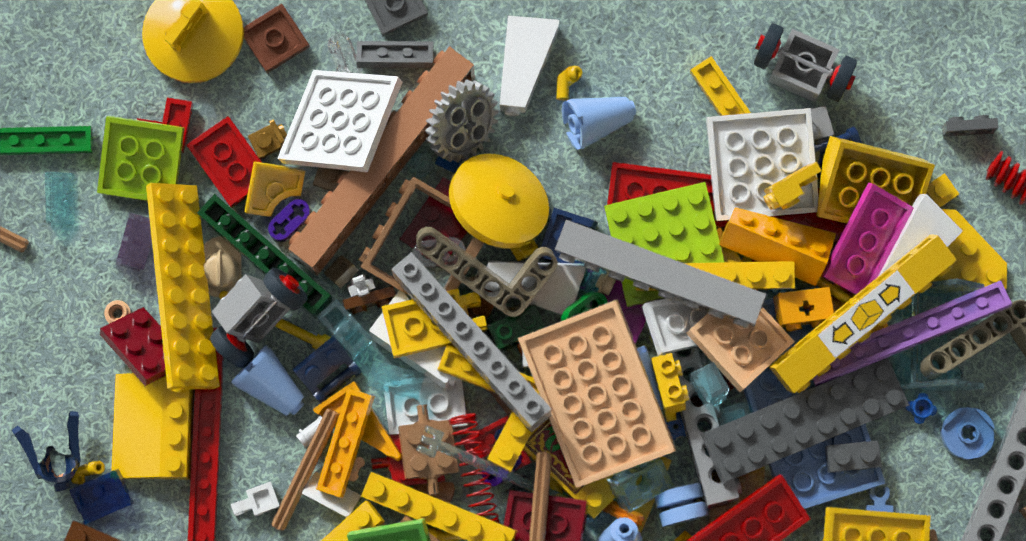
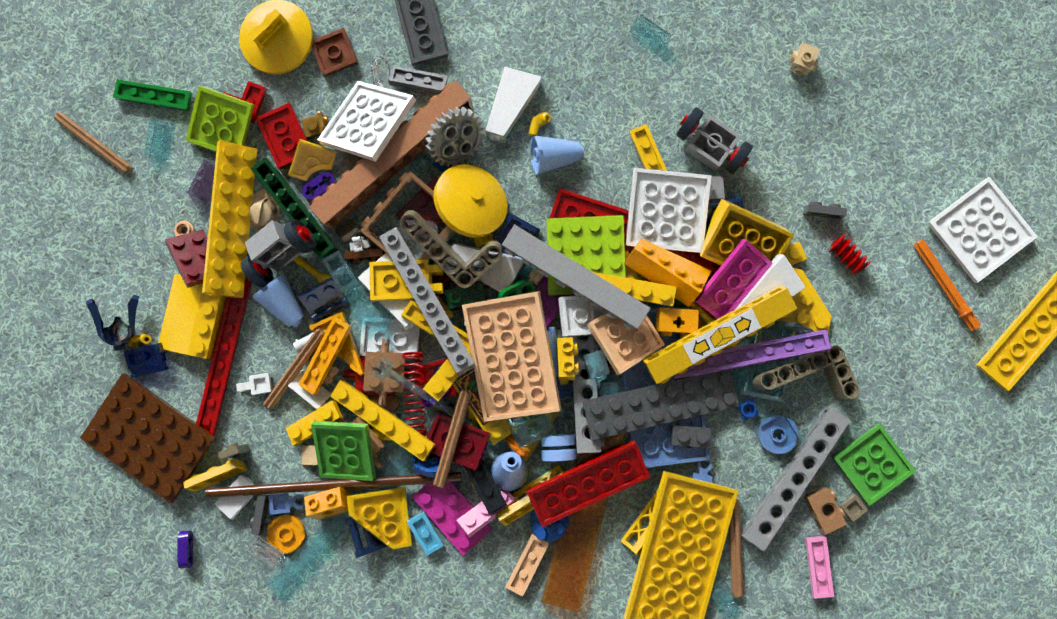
camera: 15 degrees right, 5 degrees up
(786, 191) = (682, 233): yellow plate -> none

